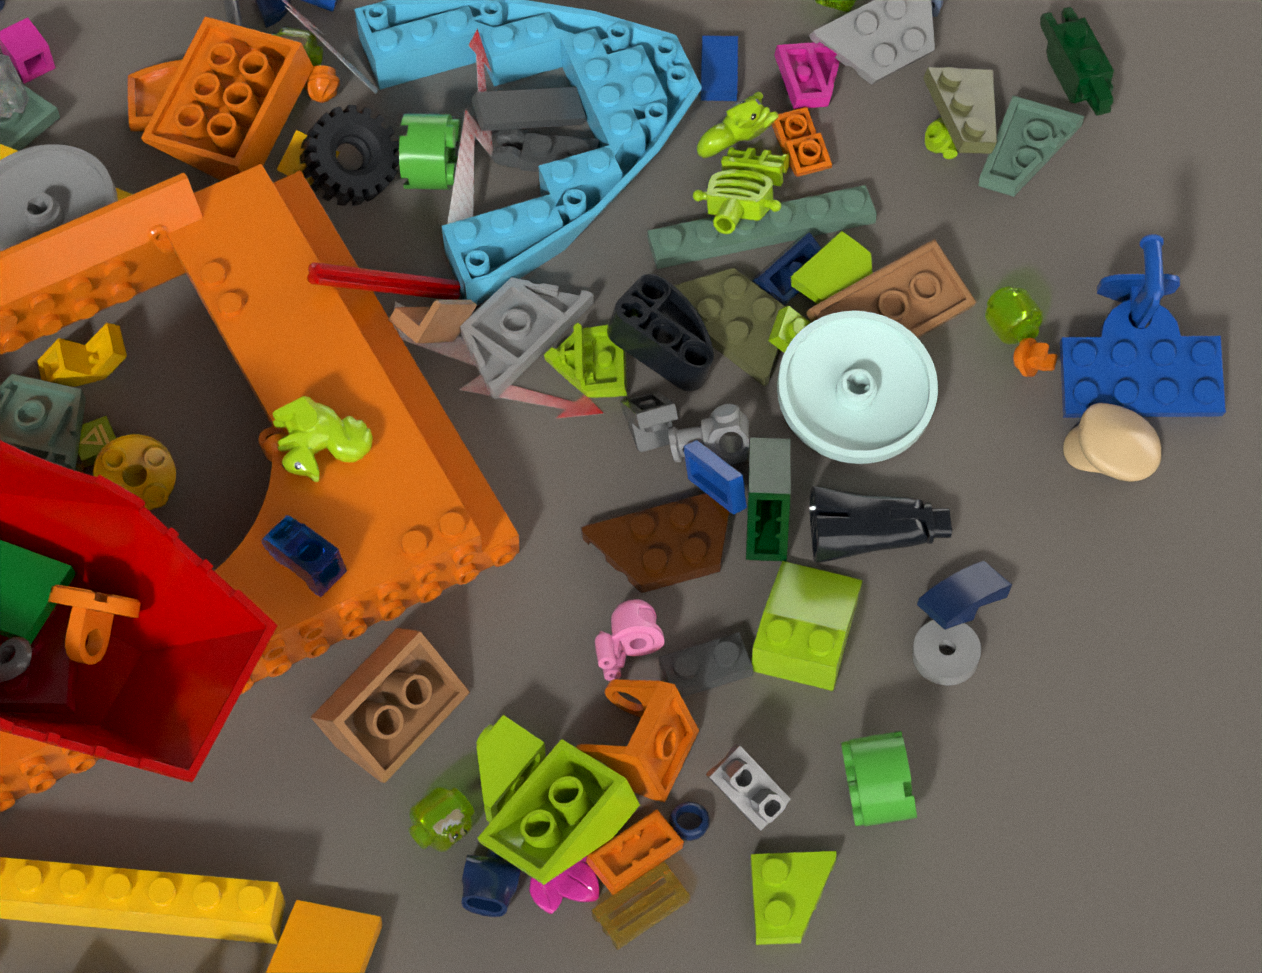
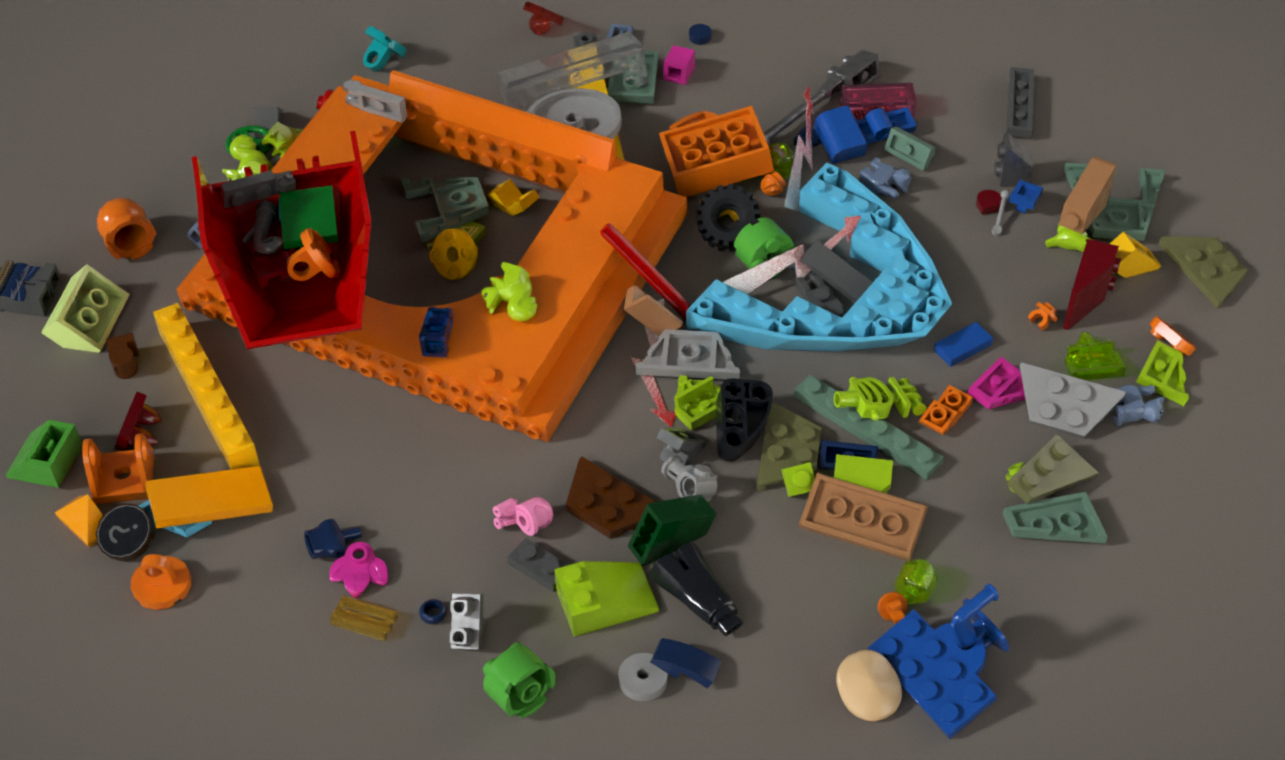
camera: 55 degrees right, 10 degrees down
(391, 703) = (402, 437): medium nougat slope -> none
(441, 819) = (349, 497): clear neon green head -> none
(505, 761) = (399, 506): lime slope -> none
(560, 814) = (382, 542): lime slope -> none
(635, 852) = (392, 594): orange plate -> none
(659, 741) = (470, 546): orange hose -> none
(715, 477) = (662, 486): blue tile -> none
(743, 122) = (923, 369): lime animal -> none
(787, 893) = (419, 683): lime wing -> none
(857, 387) = (784, 527): light aqua dish -> none
(1078, 60) = (1149, 510): dark green hinge -> none

